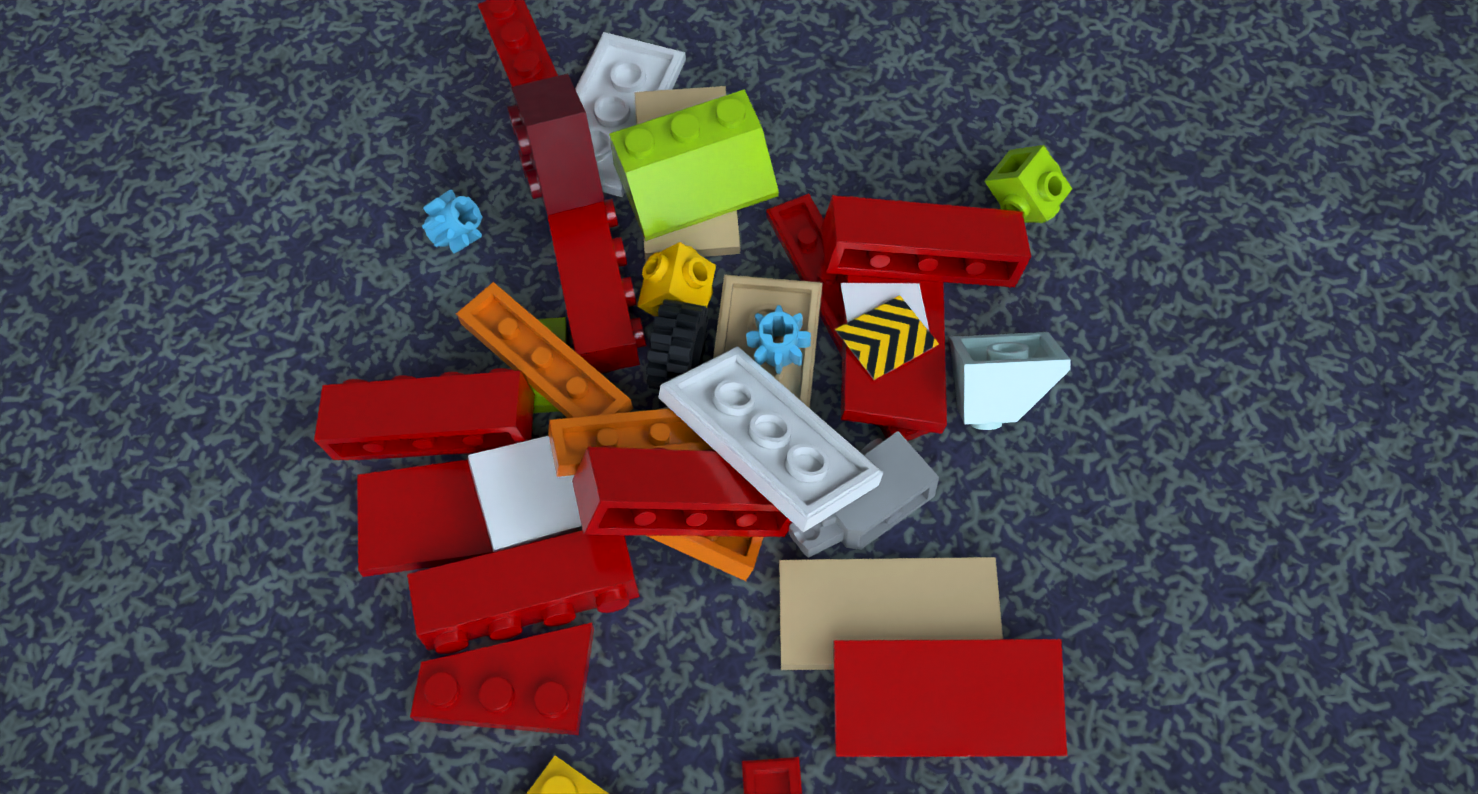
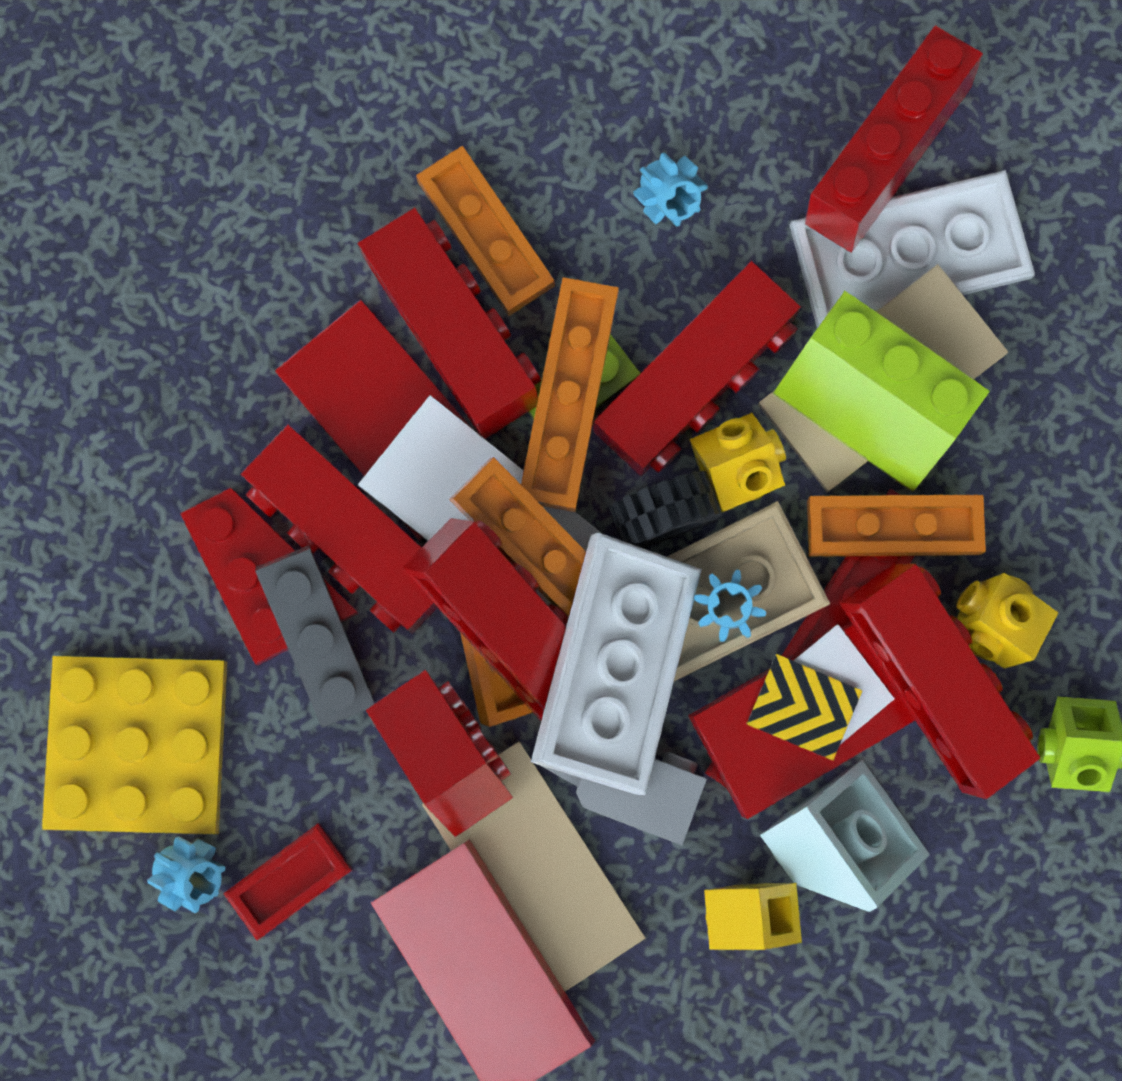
camera: 55 degrees right, 20 degrees up
(377, 356) = (485, 230): none -> orange plate
(555, 144) = (796, 244): dark red brick -> none
(588, 661) = (315, 636): none -> dark grey plate
(749, 605) = (442, 752): none -> red brick
(794, 213) = (896, 525): none -> orange plate
(909, 178) = (1005, 620): none -> yellow brick
(1023, 464) = (752, 916): none -> yellow brick

